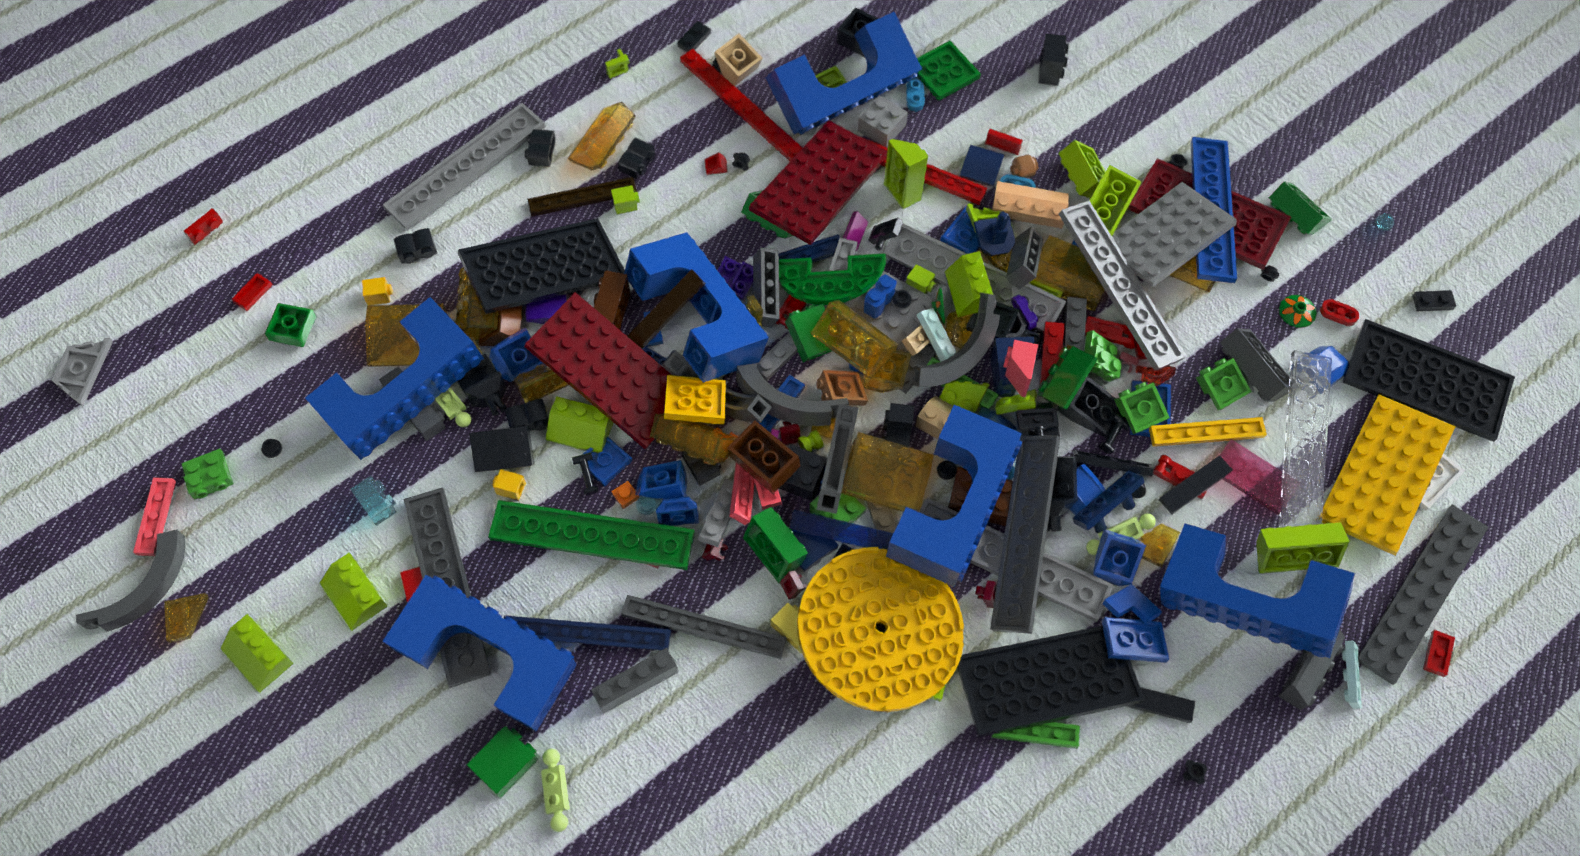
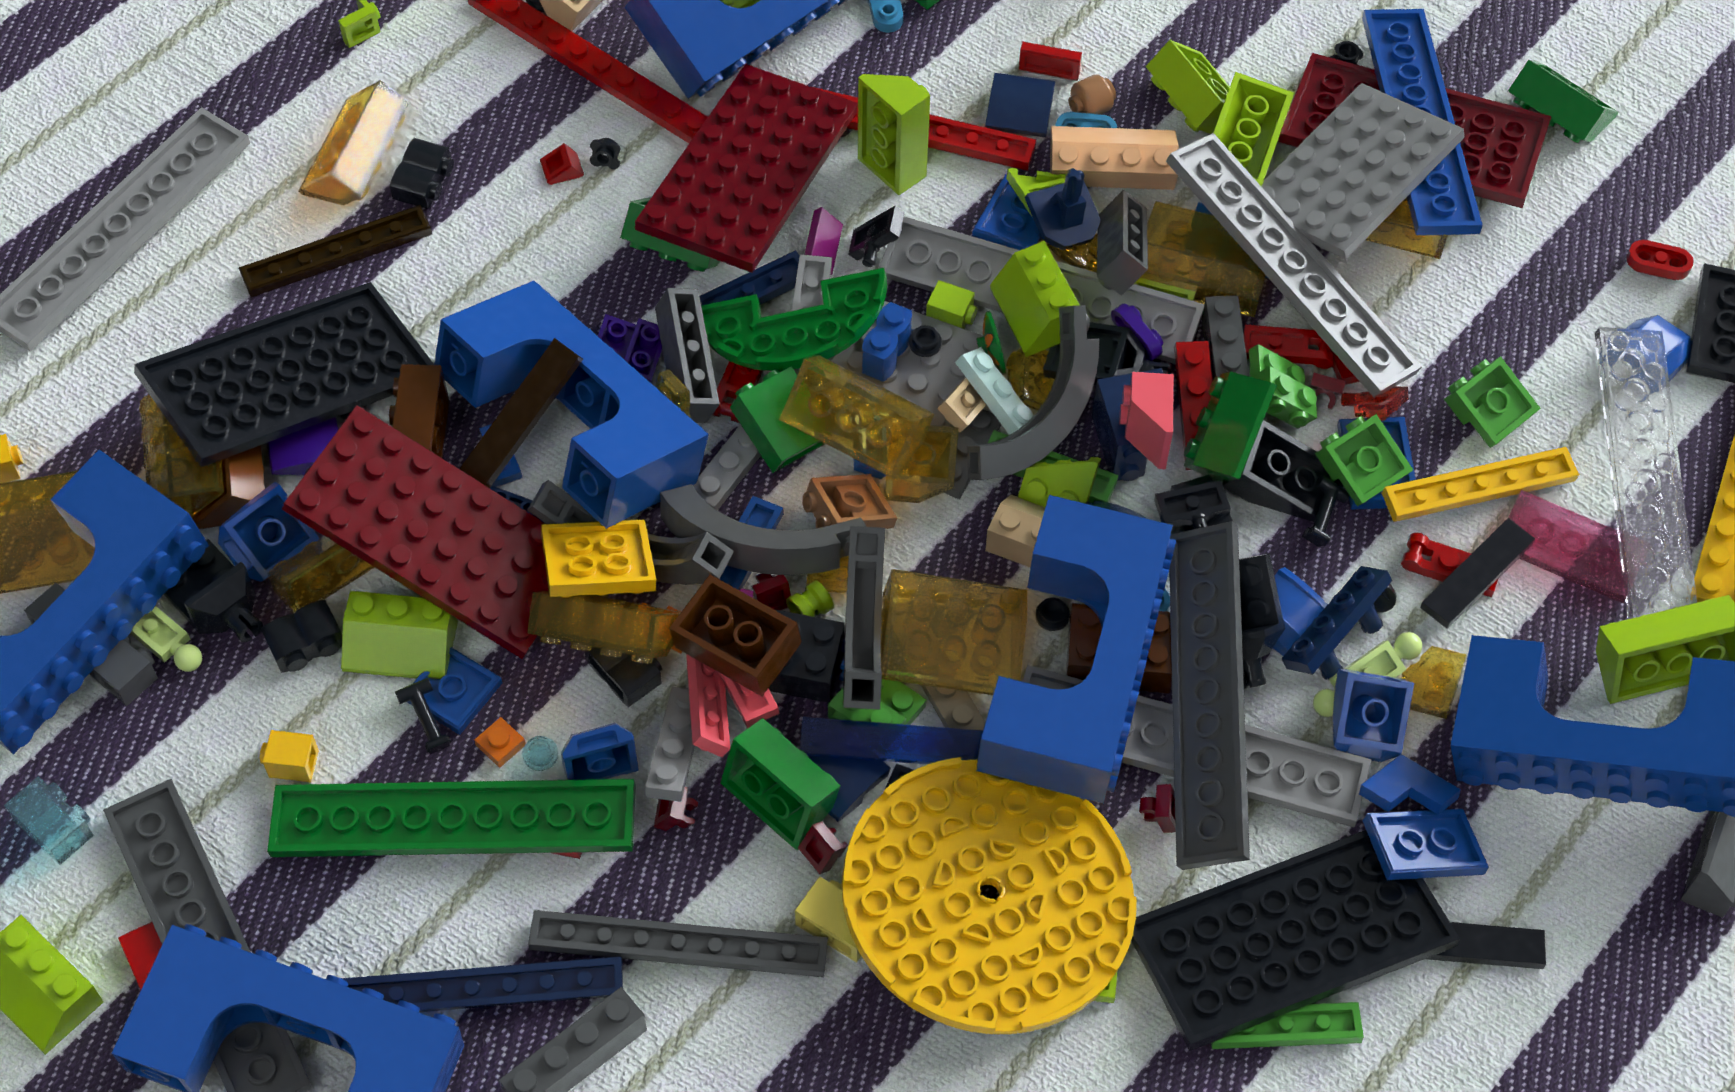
camera: 10 degrees left, 5 degrees down
(415, 246) = (50, 375): black brick -> none
(502, 448) = (266, 695): black slope -> none
(540, 147) = (248, 178): black brick -> none
(625, 199) = (413, 245): lime brick -> none
(662, 481) = (562, 707): blue slope -> none
(882, 121) = (837, 54): light grey brick -> none
(898, 423) = (957, 545): black brick -> none
(1016, 402) = (1146, 486): lime wing -> none
(1112, 463) = (1333, 559): black tile -> none
(1199, 767) = (1572, 1039): black plate -> none
(1257, 364) = (1540, 362): dark grey slope -> none
(1269, 273) = (1533, 213): black plate -> none
(1293, 315) = (1591, 268): green dish -> none
(1384, 222) = (1705, 104): clear light blue plate -> none

